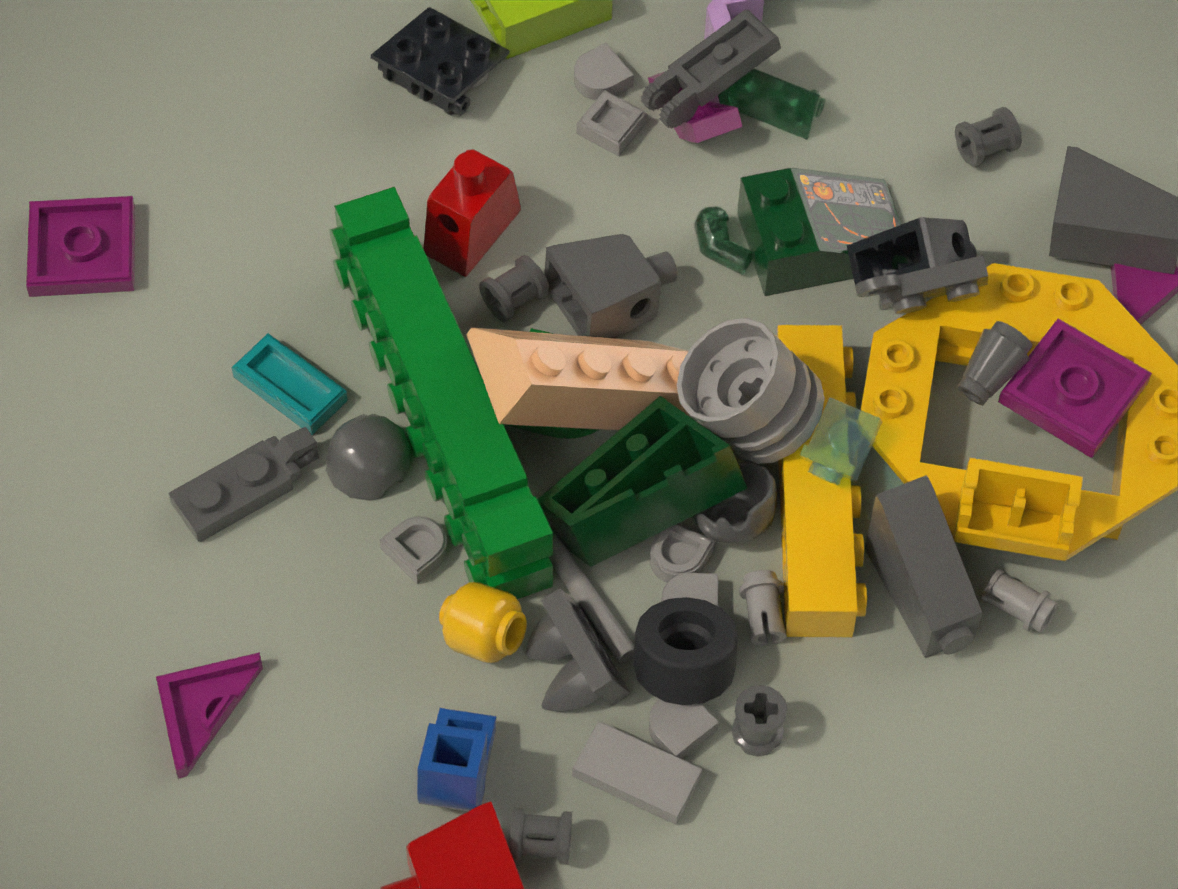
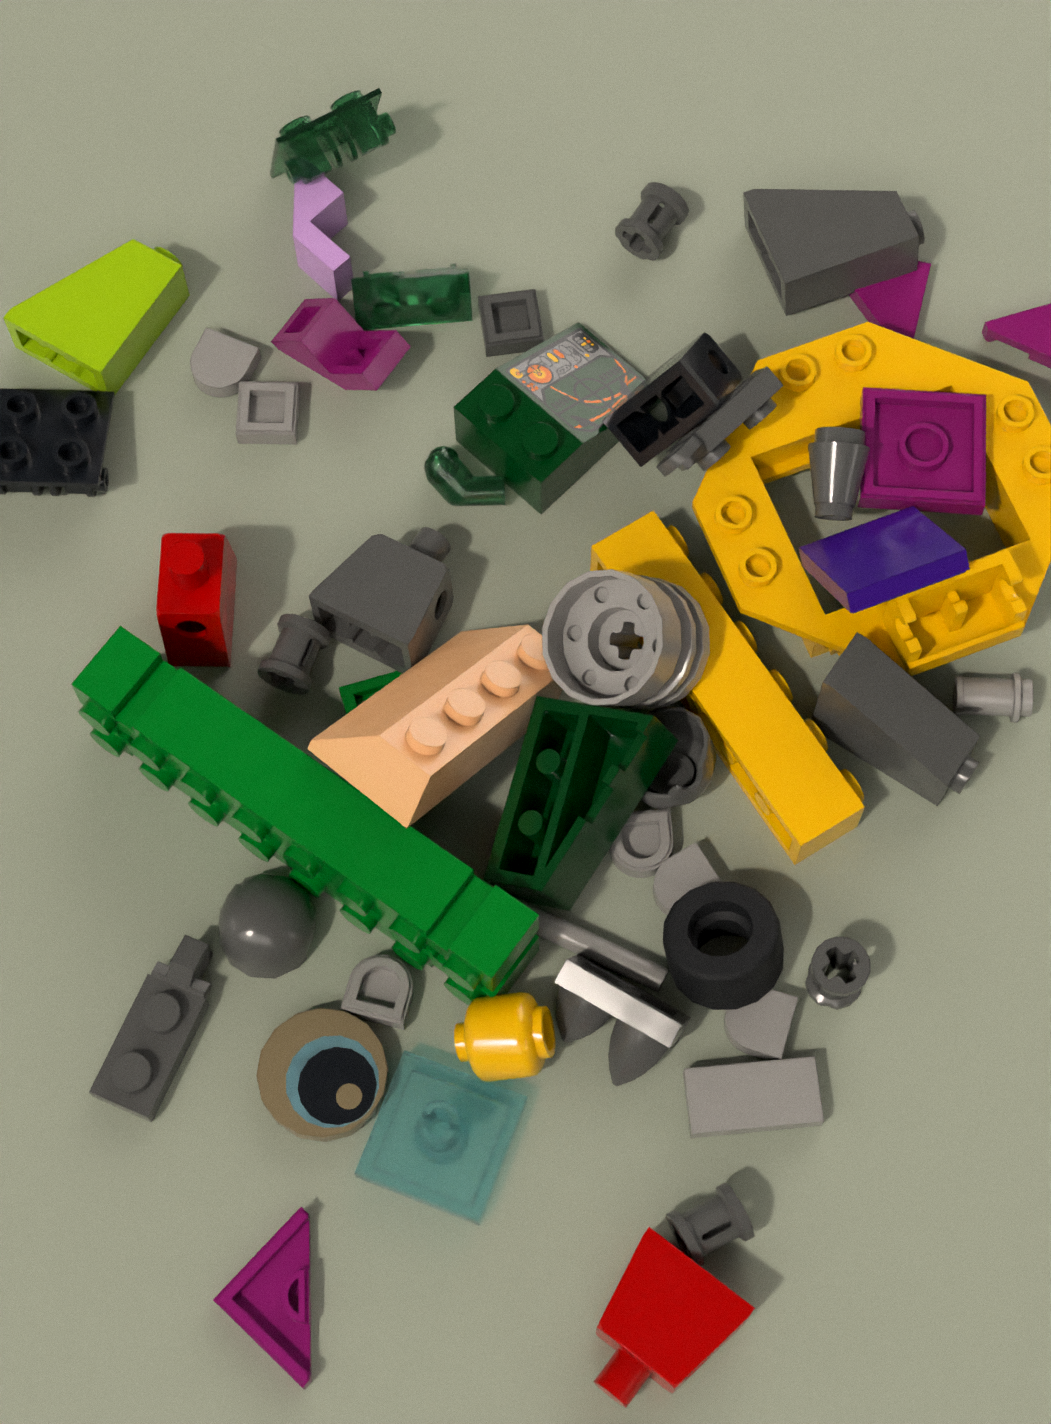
camera: 30 degrees left, 10 degrees up
(289, 383) = (130, 892): teal tile -> none
(337, 577) = (322, 1074): none -> tile
(391, 667) = (441, 1137): none -> clear light blue tile
(455, 760) = (582, 1200): blue brick -> none
(710, 68) = (346, 301): dark grey hinge -> none
(763, 605) = (759, 846): light grey pin -> none
(833, 151) = (510, 322): none -> dark grey tile
(840, 442) = (743, 642): clear light blue bracket -> none
(983, 437) = (884, 559): none -> dark purple tile

